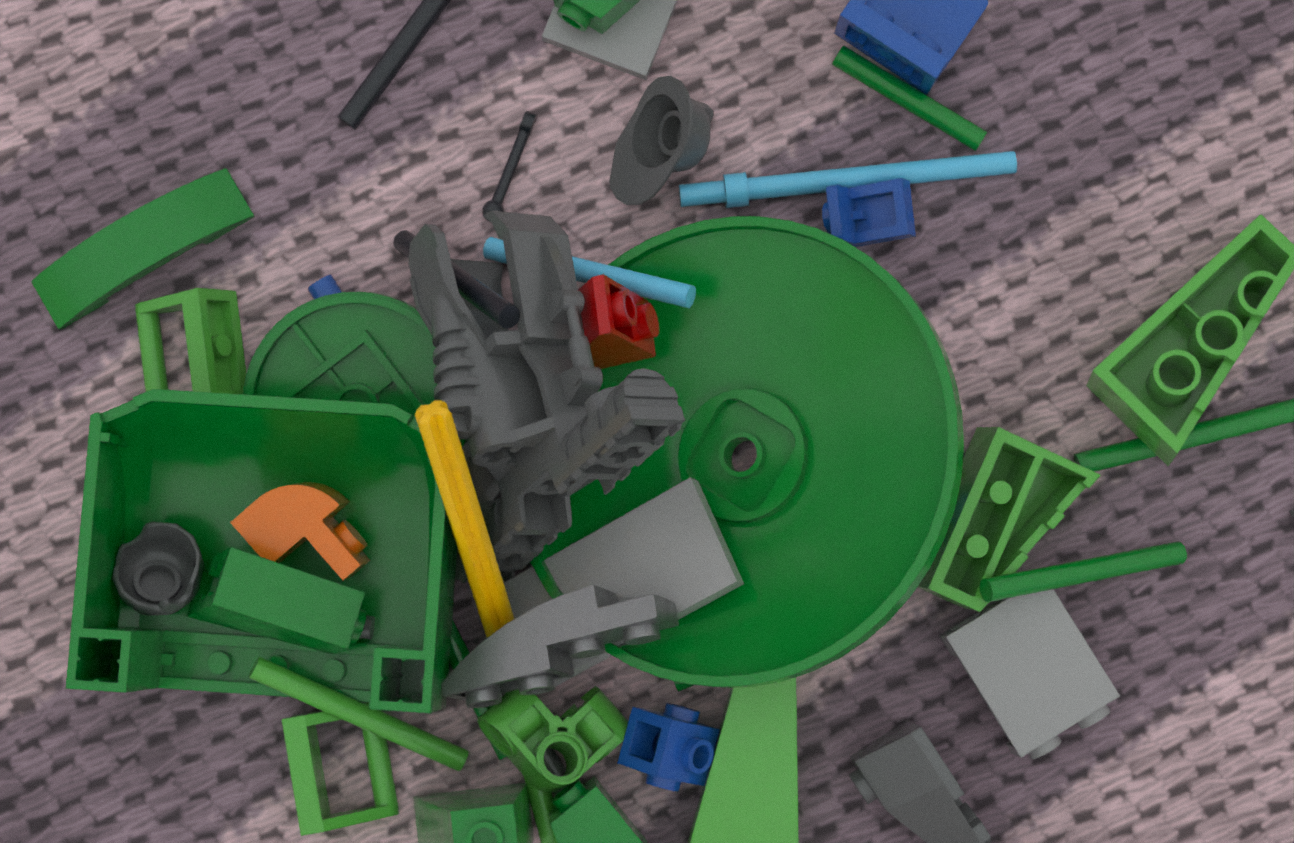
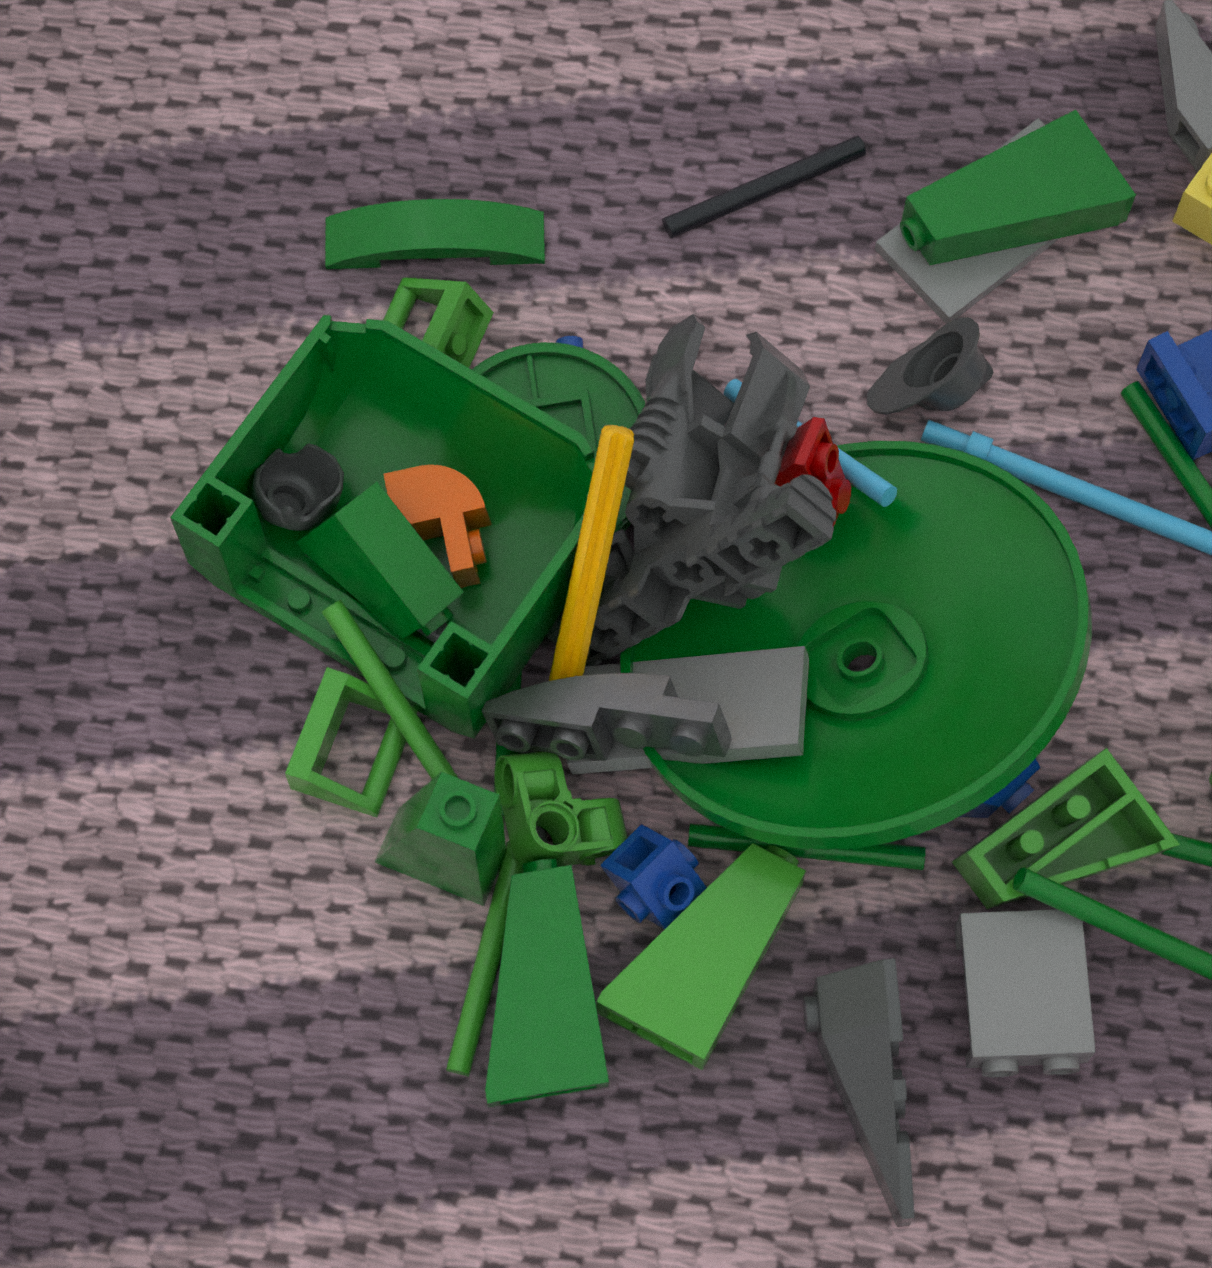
camera: 25 degrees right, 15 degrees down
(471, 289) = (706, 391): black bar -> none
(524, 131) = (822, 307): black hinge -> none
(870, 212) = (1095, 527): blue bracket -> none

